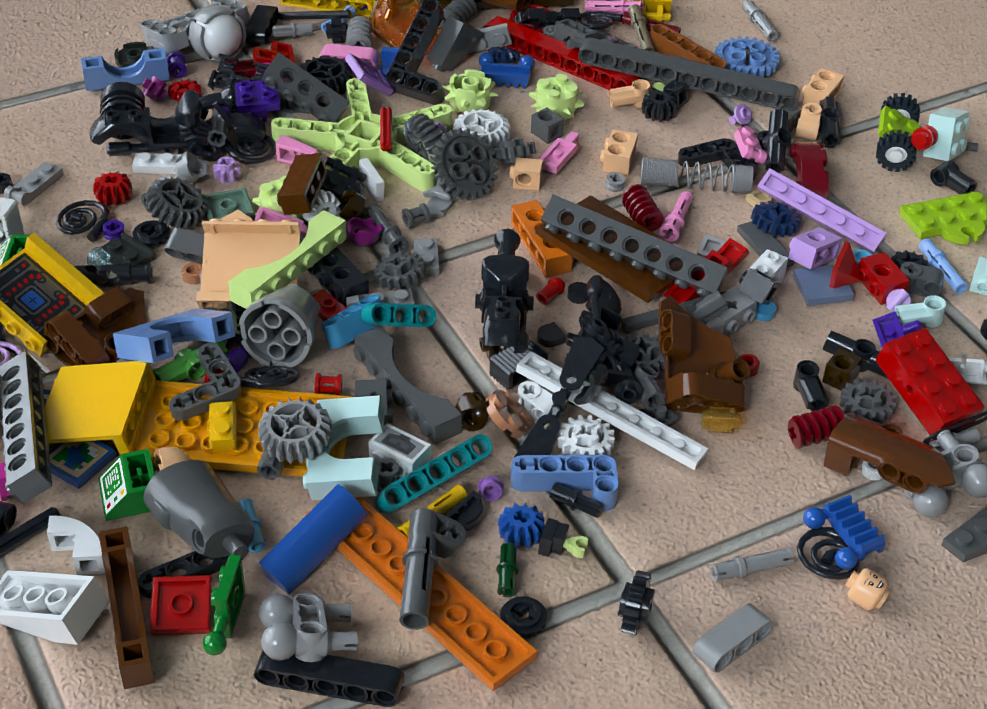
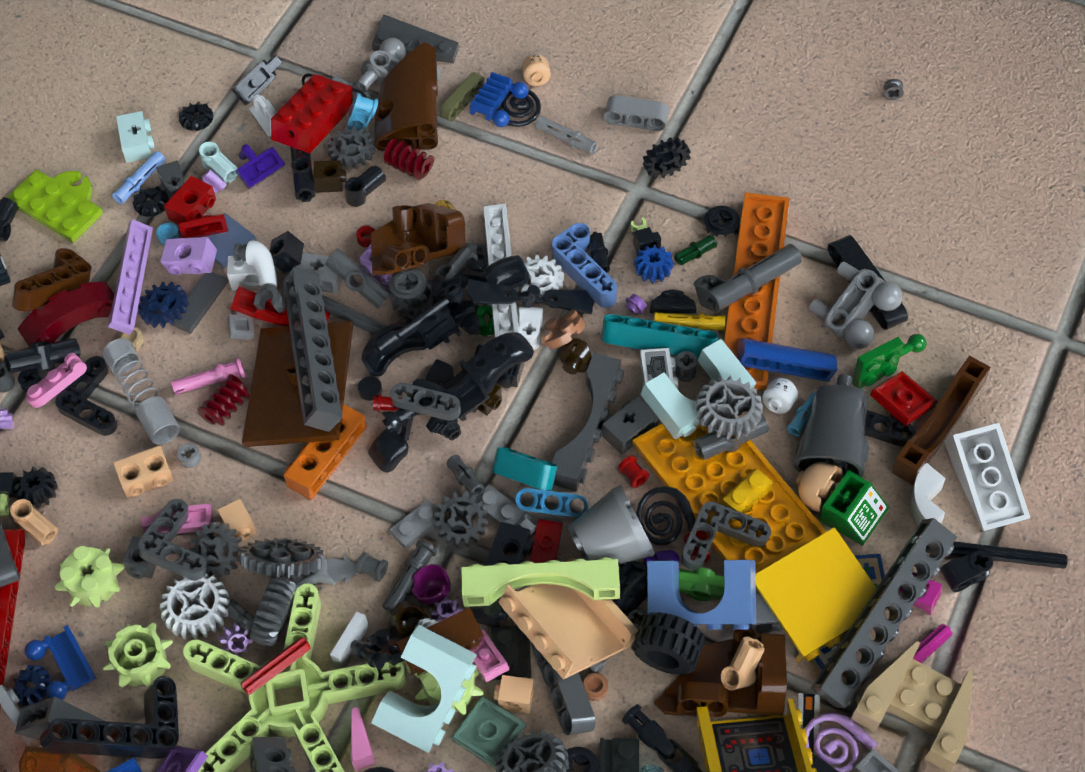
camera: 125 degrees left, 15 degrees up
(98, 326) = (742, 668): none -> light nougat piece
(162, 295) = (668, 643): none -> black tyre
(276, 160) = (450, 667): none -> light aqua arch
(284, 515) = (780, 394): none -> white head
(435, 292) = (465, 475): none -> dark grey pin
(483, 256) = (430, 410): none -> dark grey beam
(509, 126) = (164, 546): none -> dark grey beam
(646, 331) = (398, 282): none -> dark grey gear
(740, 255) = (261, 259): none -> piece
(835, 137) = (67, 273): none -> reddish brown beam
(876, 510) = (462, 97): none -> olive beam
(909, 418) = (361, 112): none -> medium azure piece

